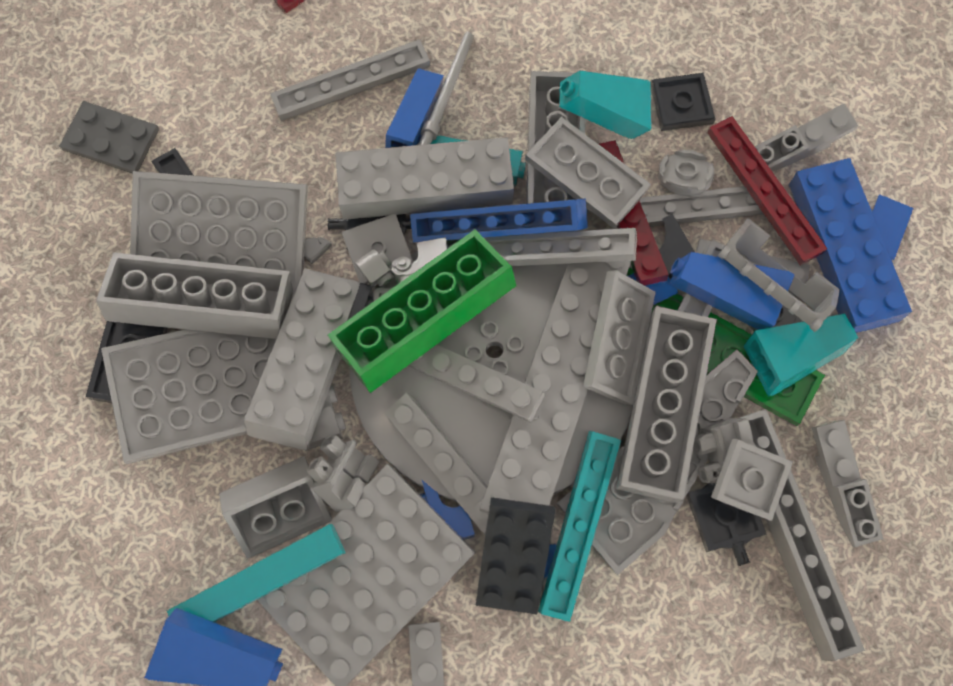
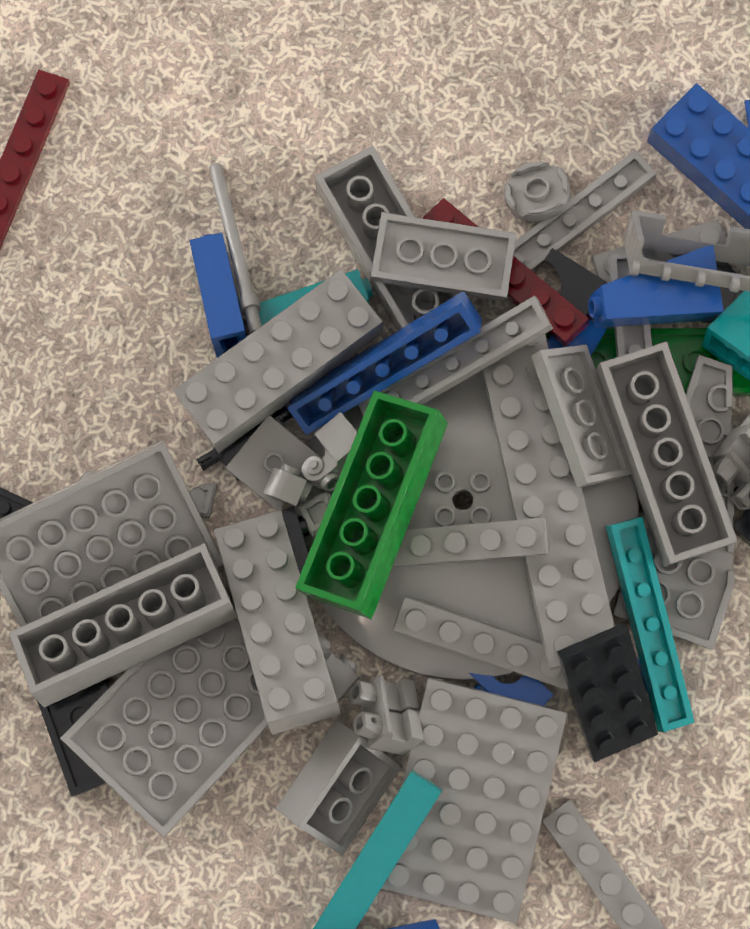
camera: 25 degrees left, 5 degrees up
(350, 80) = (120, 292): light grey plate -> none
(609, 101) = (418, 163): teal slope -> none
(682, 101) = (487, 113): black plate -> none
(766, 191) = (630, 165): dark red plate -> none
(807, 139) = (635, 87): light grey slope -> none

